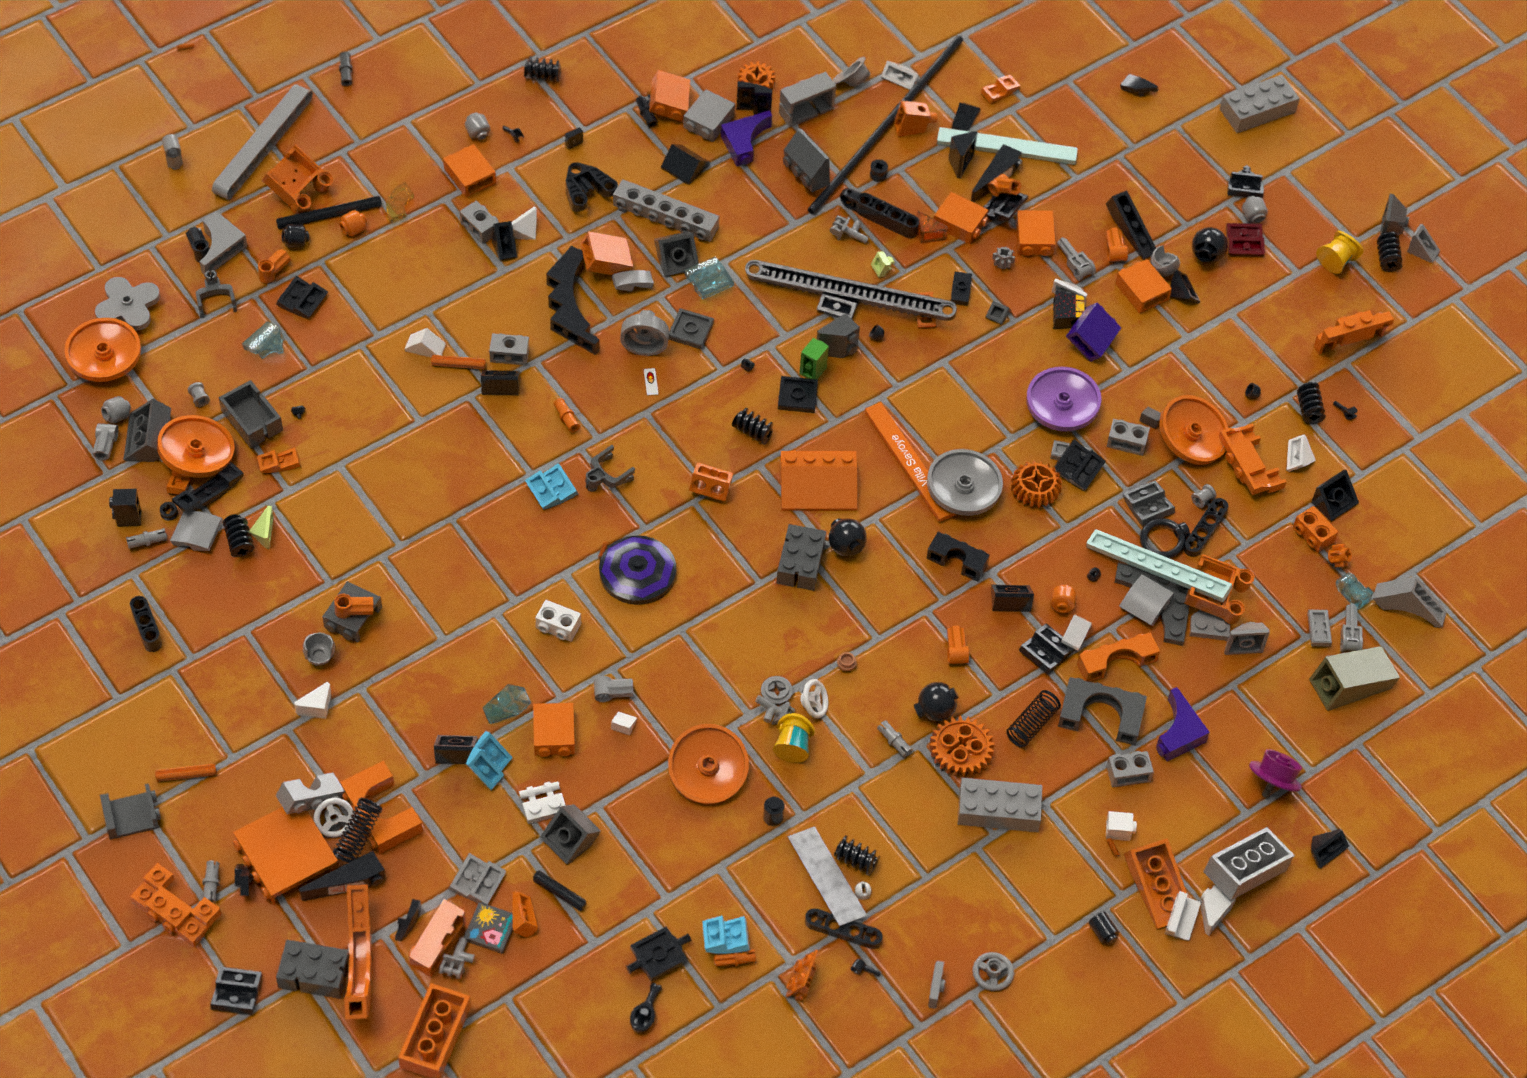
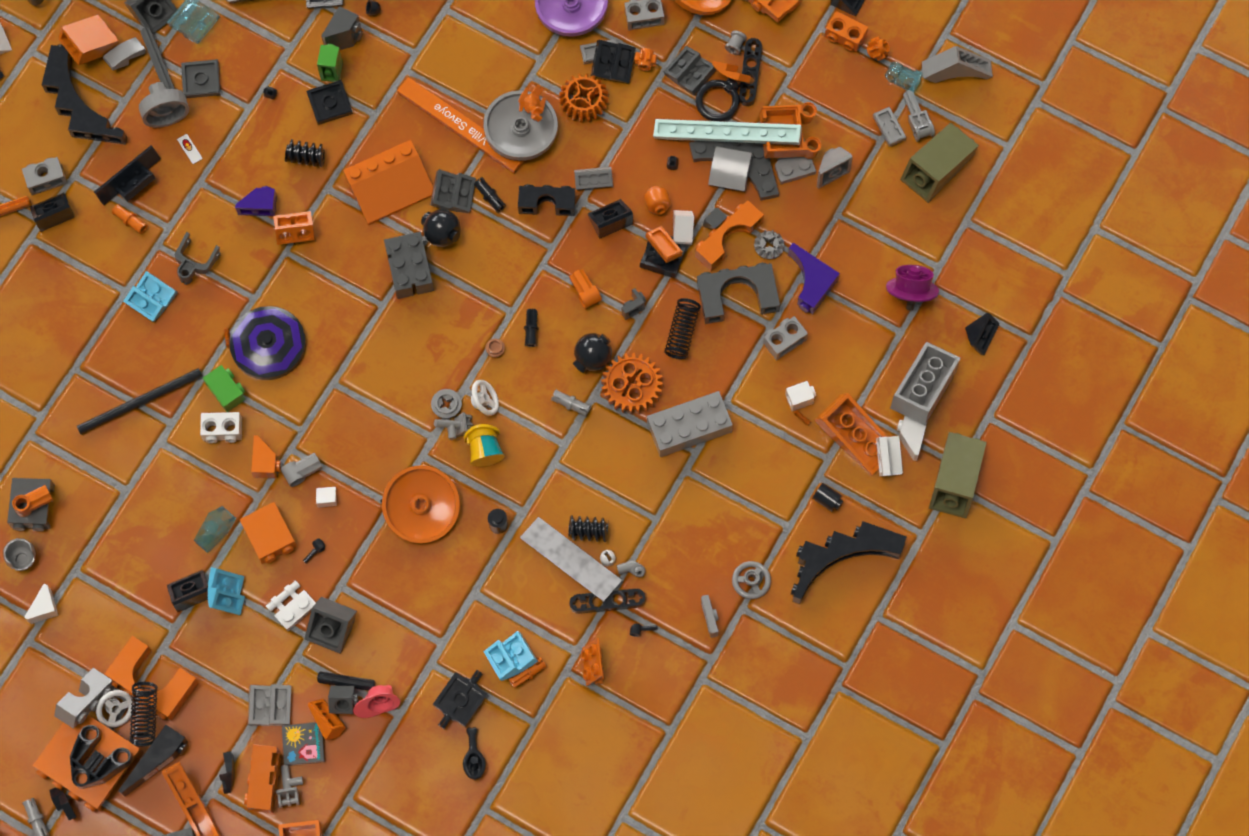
camera: 20 degrees left, 15 degrees up
(285, 848) = (106, 770): none -> black connector
(495, 569) = (139, 401): none -> black piece
(540, 906) = (342, 699): none -> dark grey brick
(578, 589) = (224, 388): none -> bright green brick
(578, 920) = (377, 701): none -> coral piece
(582, 666) = (264, 460): none -> orange slope
(584, 382) = (130, 179): none -> black bracket
(595, 763) = (319, 546): none -> black hand
(660, 288) = (156, 57): none -> dark grey axle
(689, 449) = (258, 202): none -> dark purple slope
(874, 513) = (453, 191): none -> dark grey slope
(882, 909) = (632, 567): none -> light grey arm
(889, 658) = (531, 328): none -> black axle
(907, 530) = (489, 195): none -> black pin
(984, 464) = (532, 103): none -> orange piece
(996, 681) = (634, 307): none -> dark grey bracket
(1011, 555) = (593, 178): none -> light grey plate
(1051, 638) = (663, 244): none -> orange tile
(1094, 978) = (867, 541): none -> black arch
(1110, 475) = (645, 59): none -> orange gear
(1110, 635) = (714, 219): none -> dark grey slope
(1150, 688) = (769, 252): none -> light grey gear
(1188, 517) = (731, 71): none -> orange slope
(1242, 963) = (957, 475): none -> olive slope

